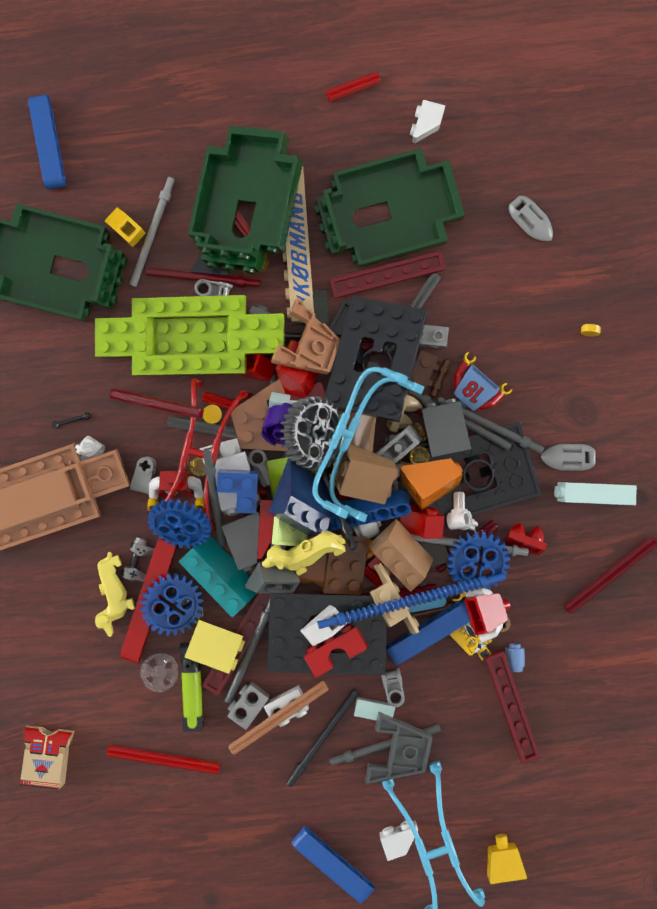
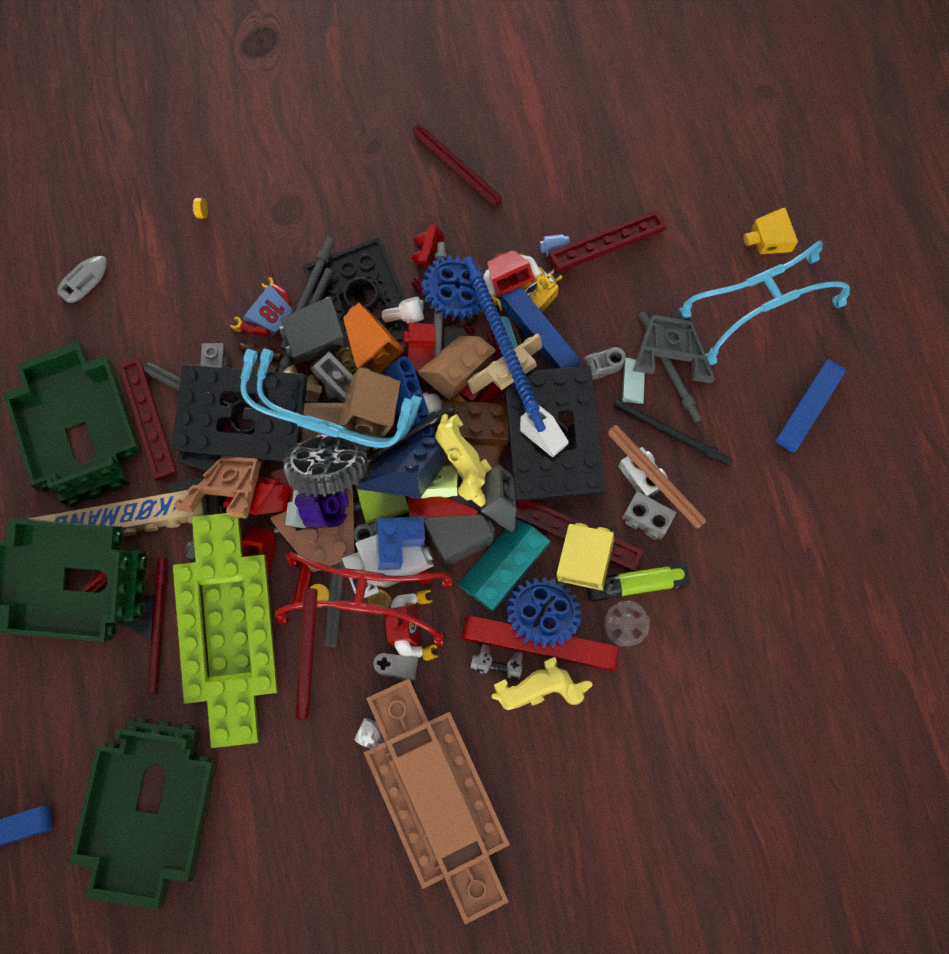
camera: 90 degrees left, 15 degrees down
(45, 757) = (748, 746): piece -> none
(56, 424) = (345, 784): black hinge -> none
(125, 227) = (97, 722): yellow slope -> none
(163, 759) = (727, 609): red axle -> none
(164, 197) = (62, 680): light grey bar -> none
(179, 523) = (445, 608): blue gear -> none
(210, 470) = (378, 571): dark grey bar -> none
(215, 288) = (168, 609): light grey piece -> none
(264, 618) = (545, 505): dark grey bar -> none
(319, 657) = (578, 432): red arch -> none
(397, 840) = (770, 340): white slope -> none
(569, 457) = (337, 215): light grey piece -> none
(596, 493) = (371, 182): light aqua window -> none

